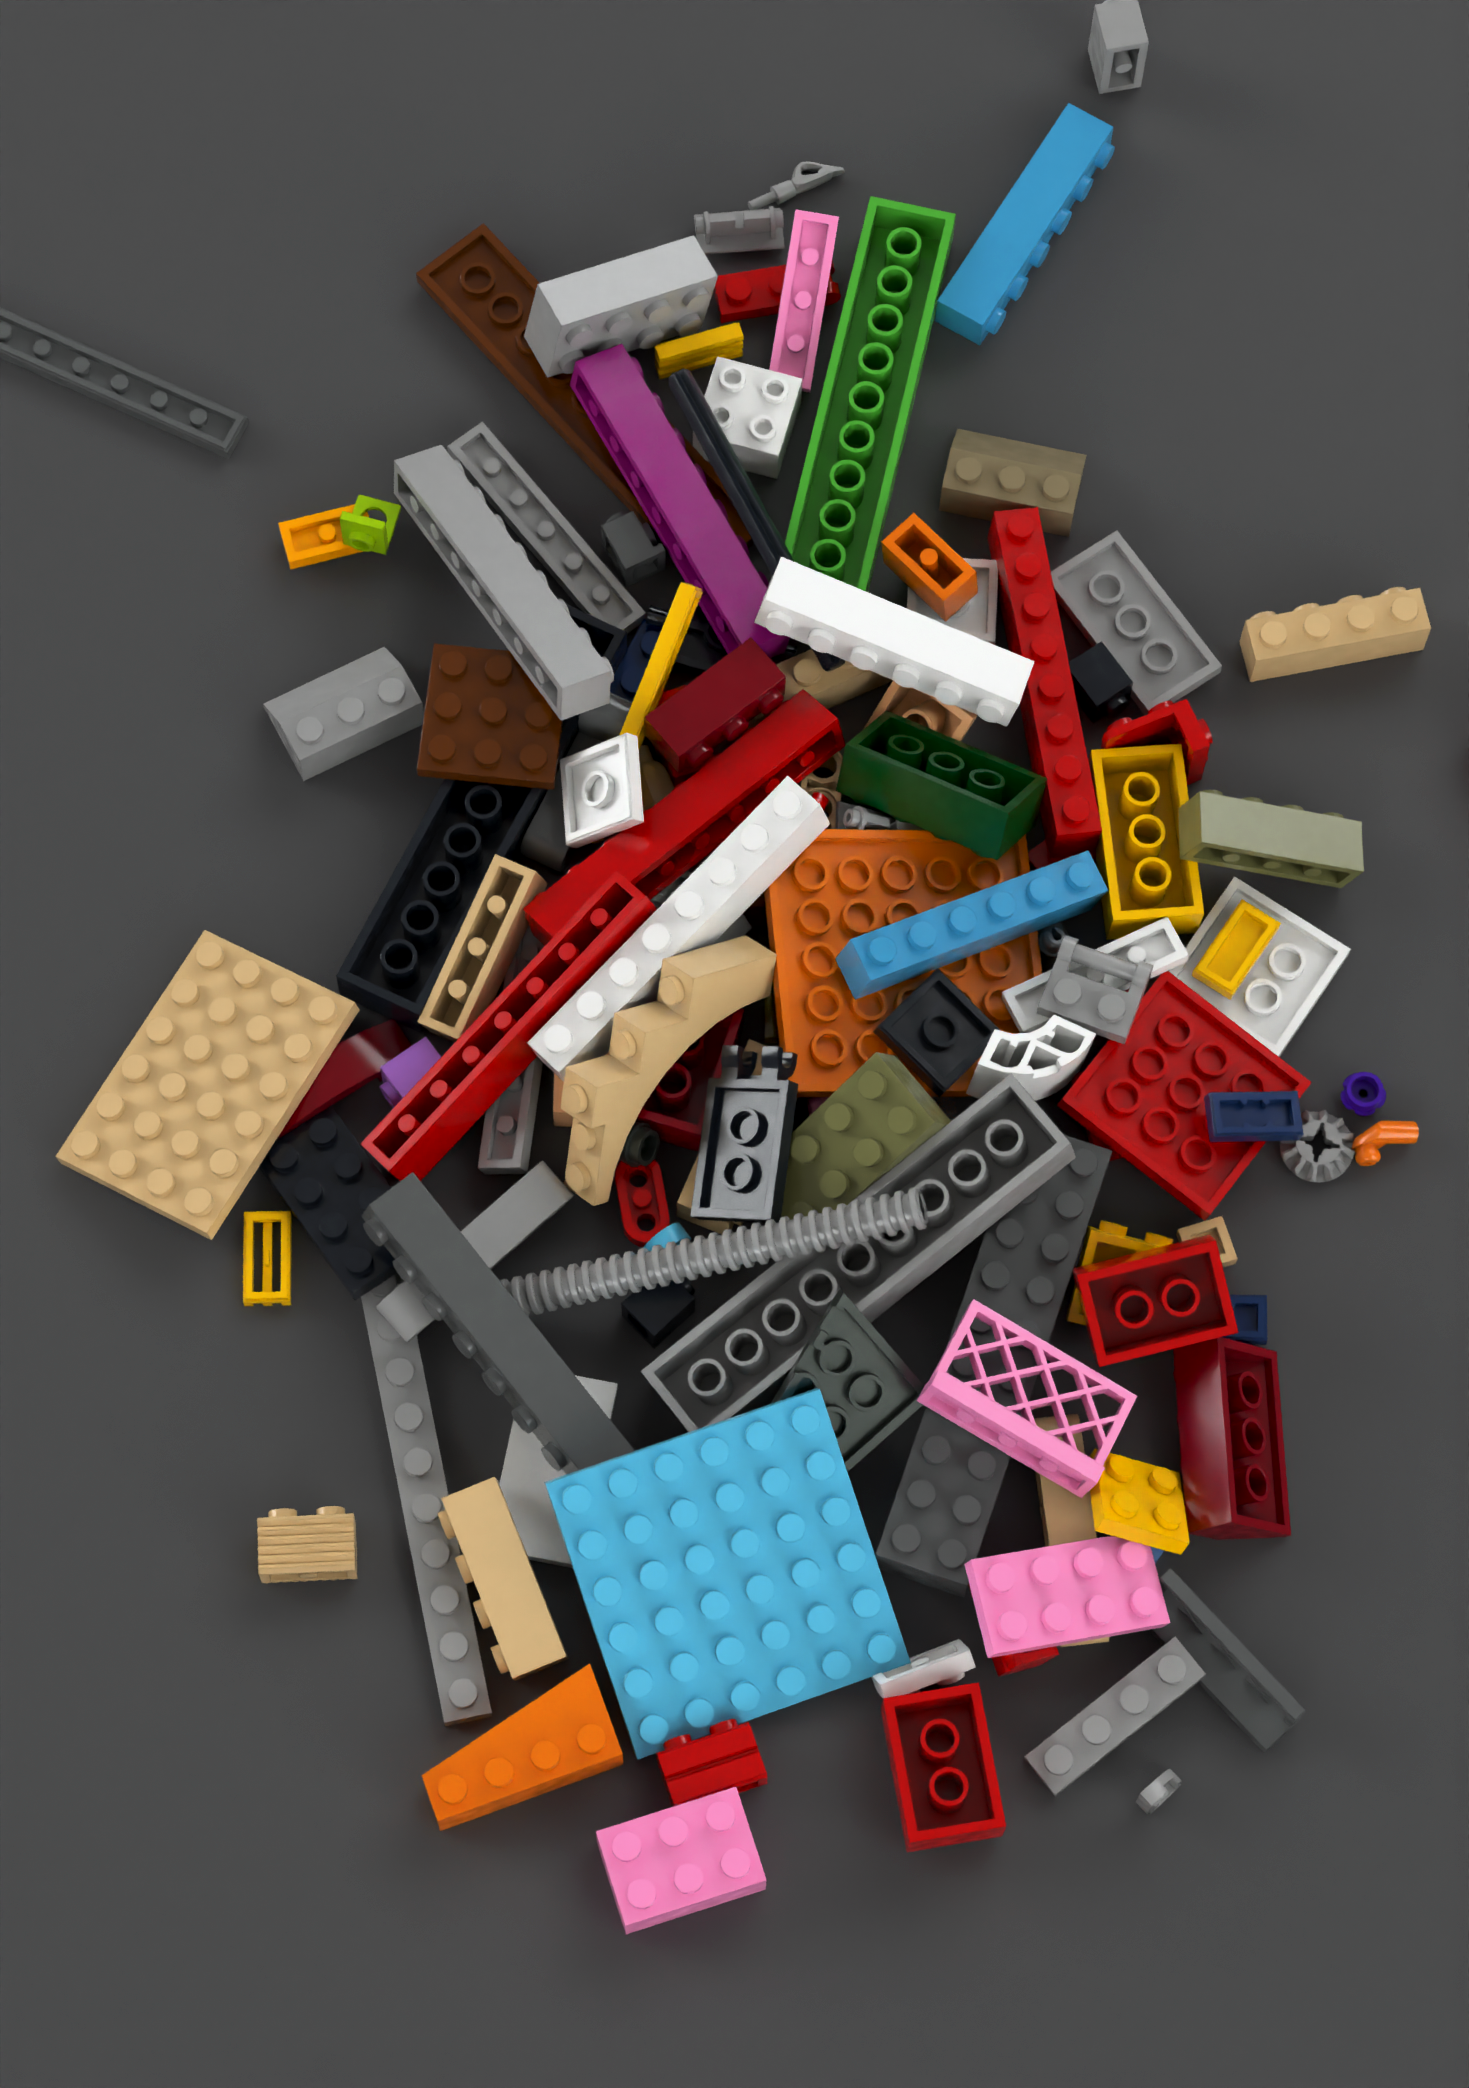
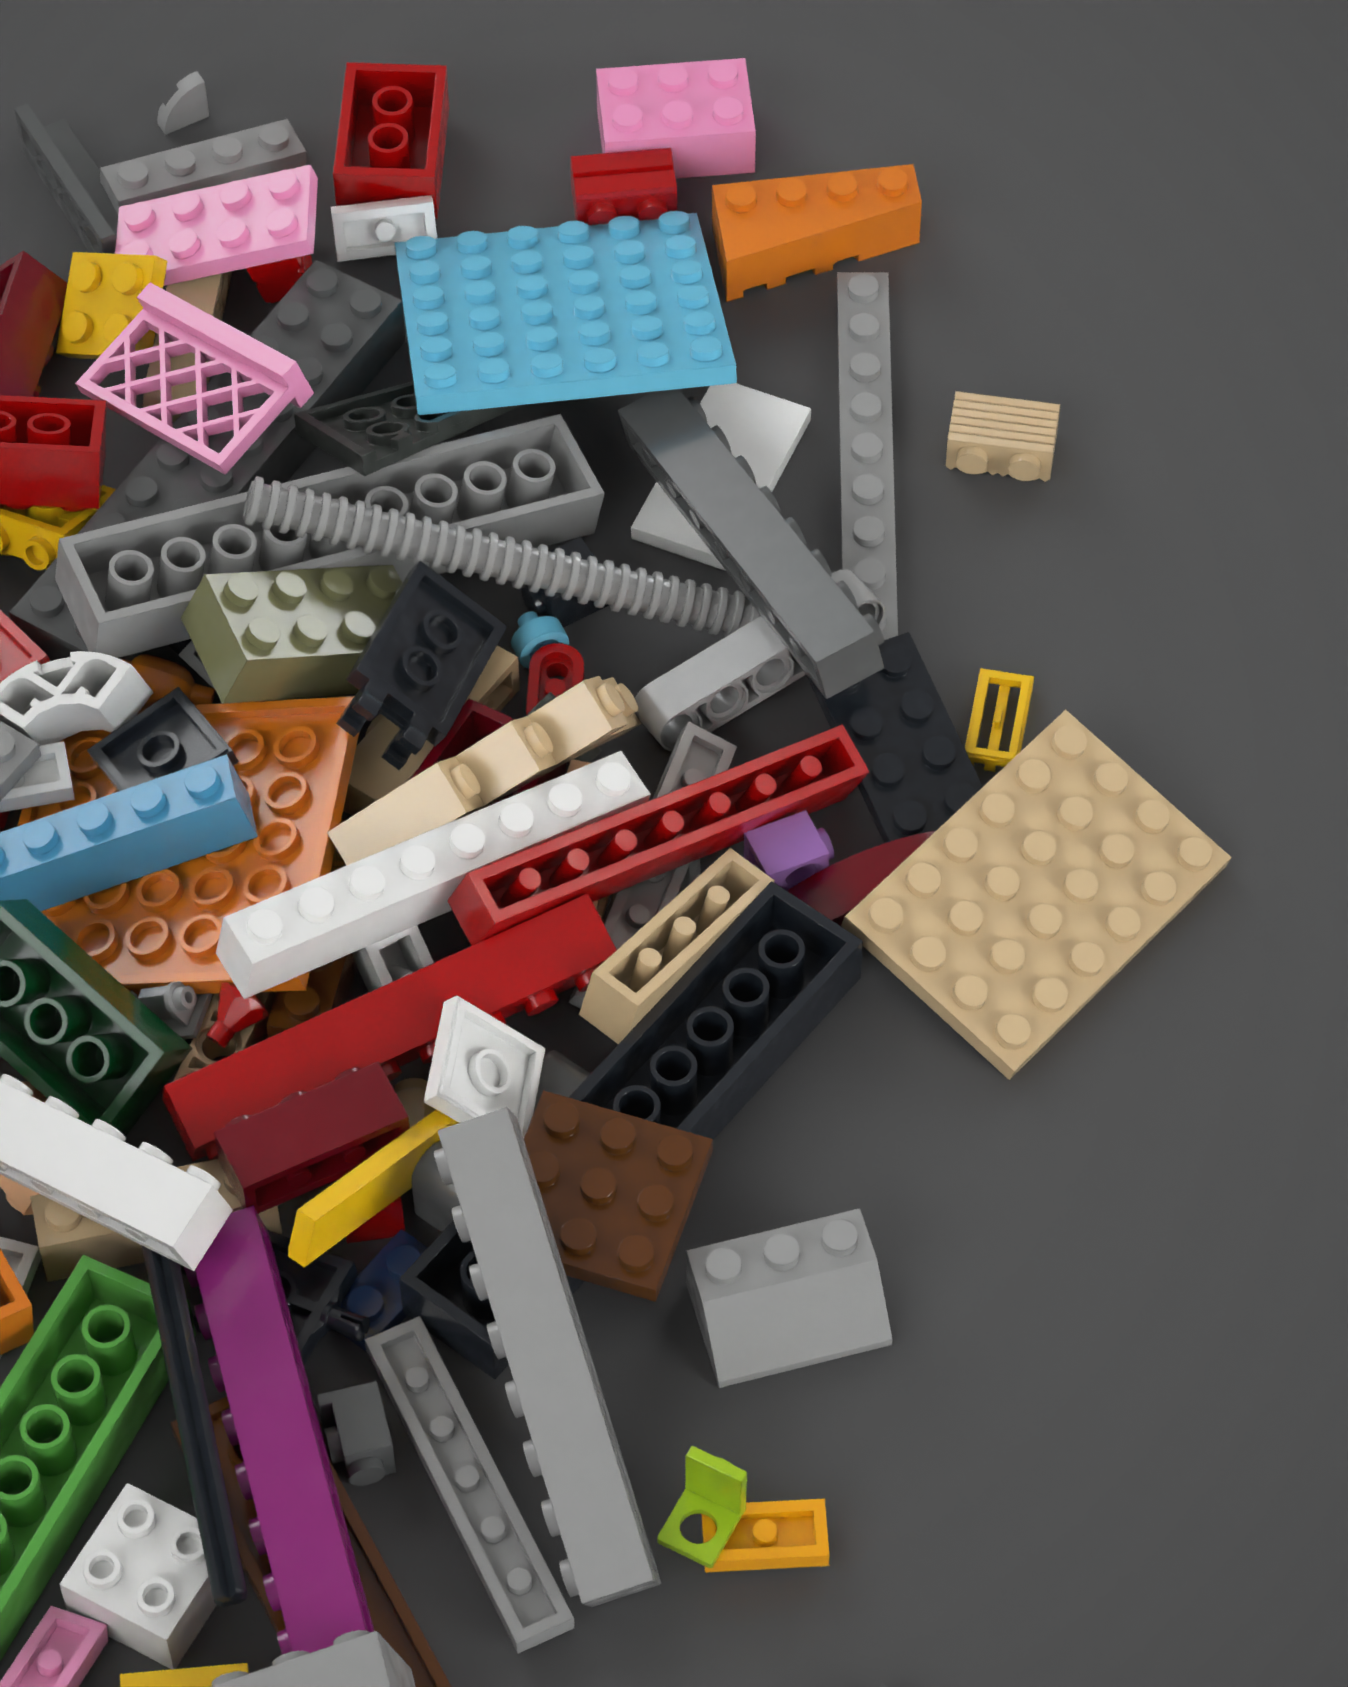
camera: 165 degrees left, 15 degrees down
(503, 1578) = (800, 362): tan brick -> none

